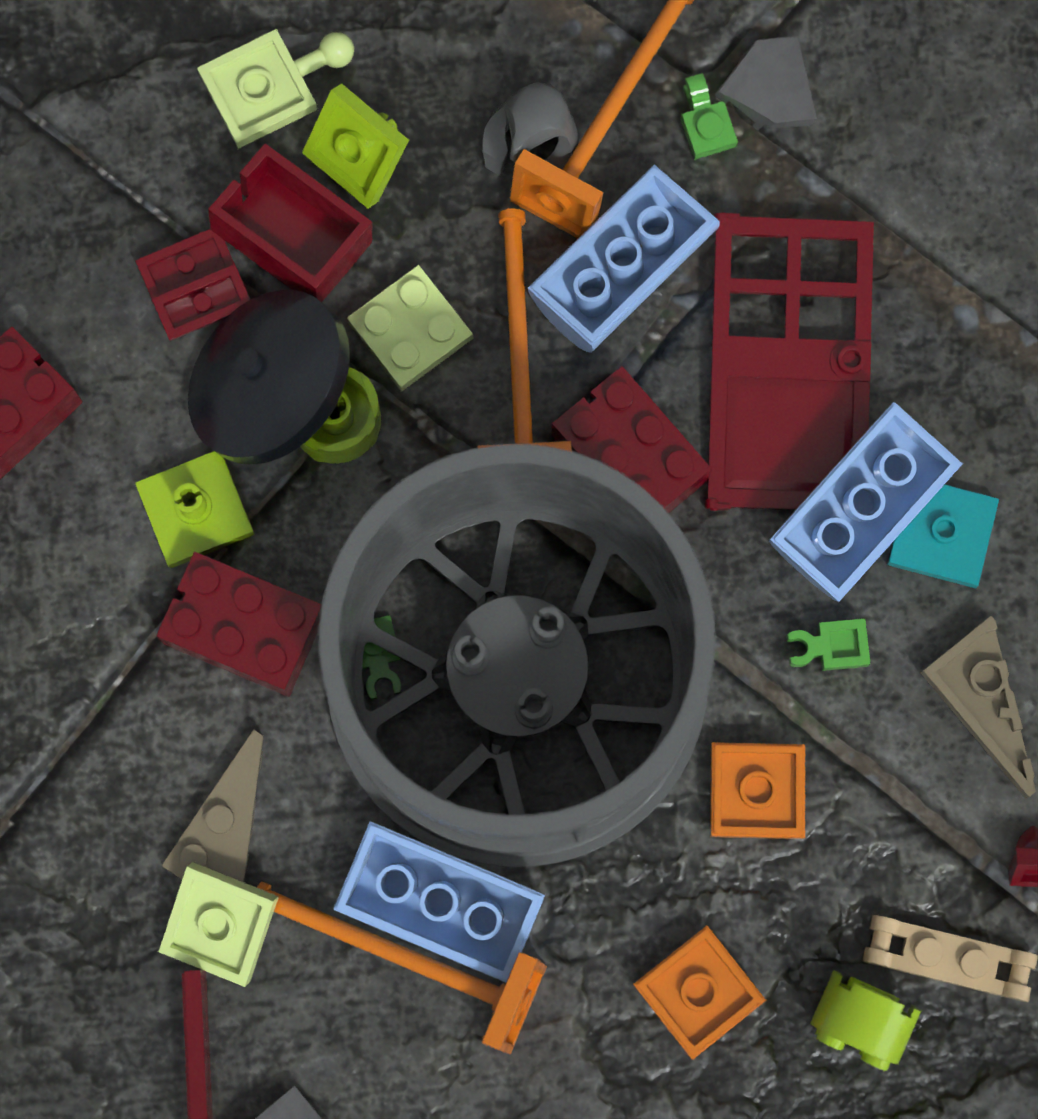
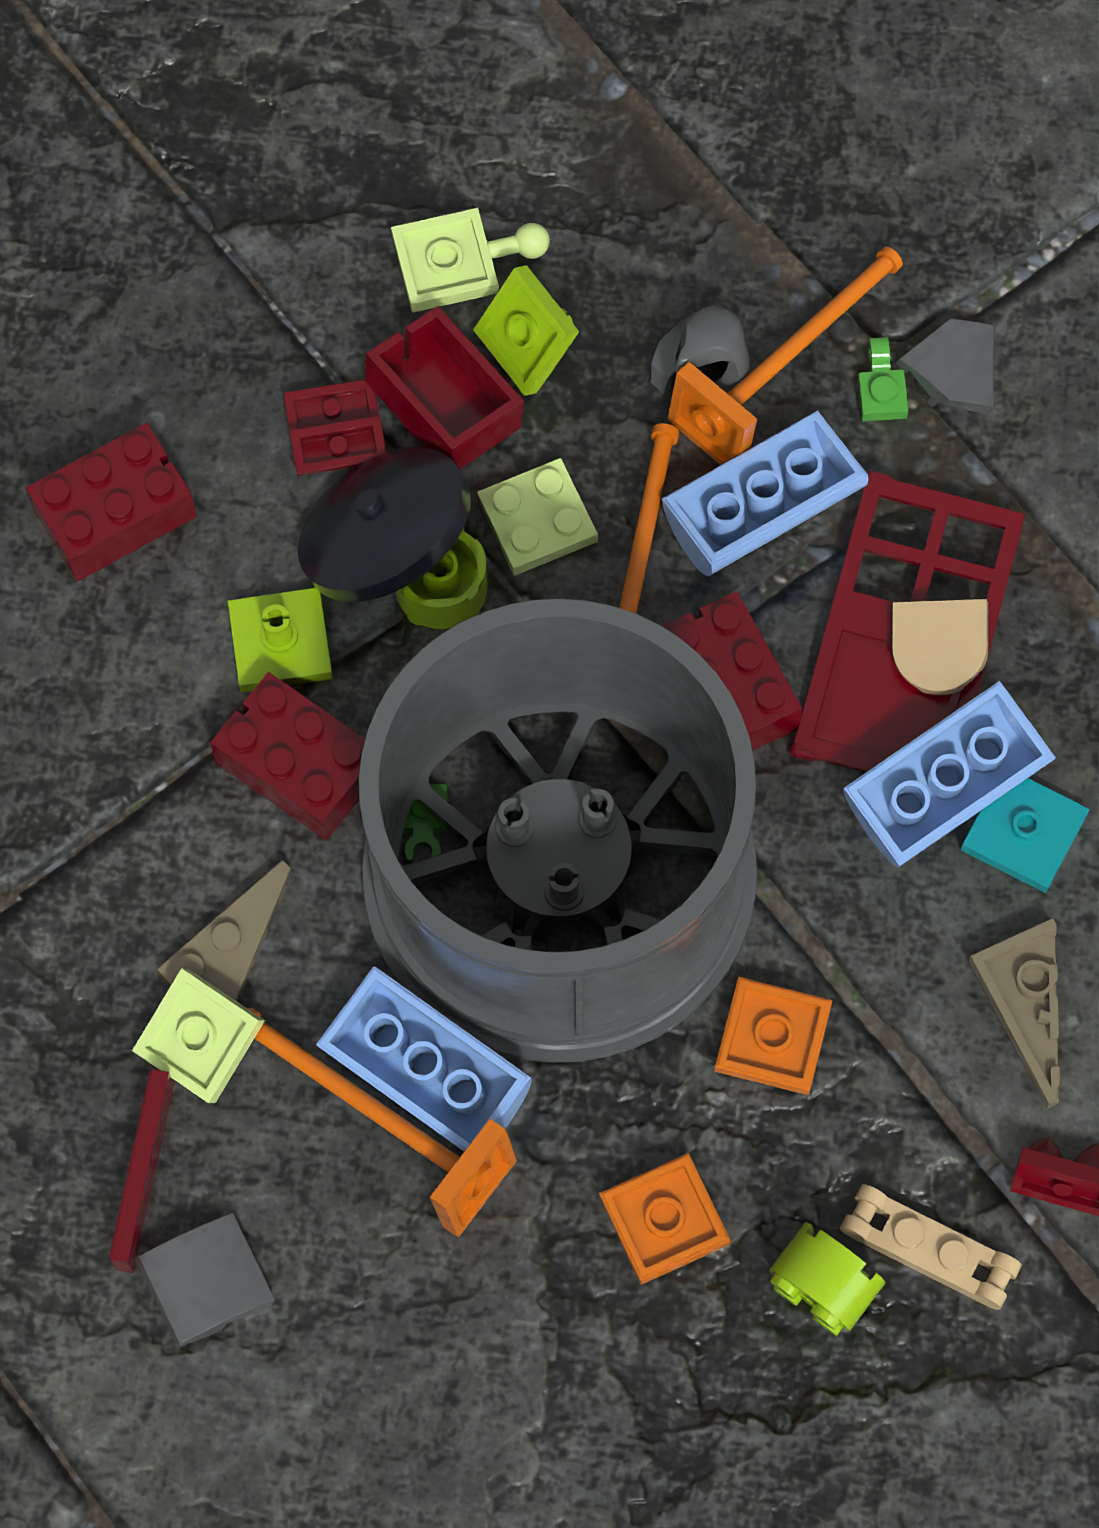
camera: 15 degrees right, 10 degrees down
(825, 371) = (940, 643): none -> tan tile
(838, 645) = (892, 912): bright green plate -> none

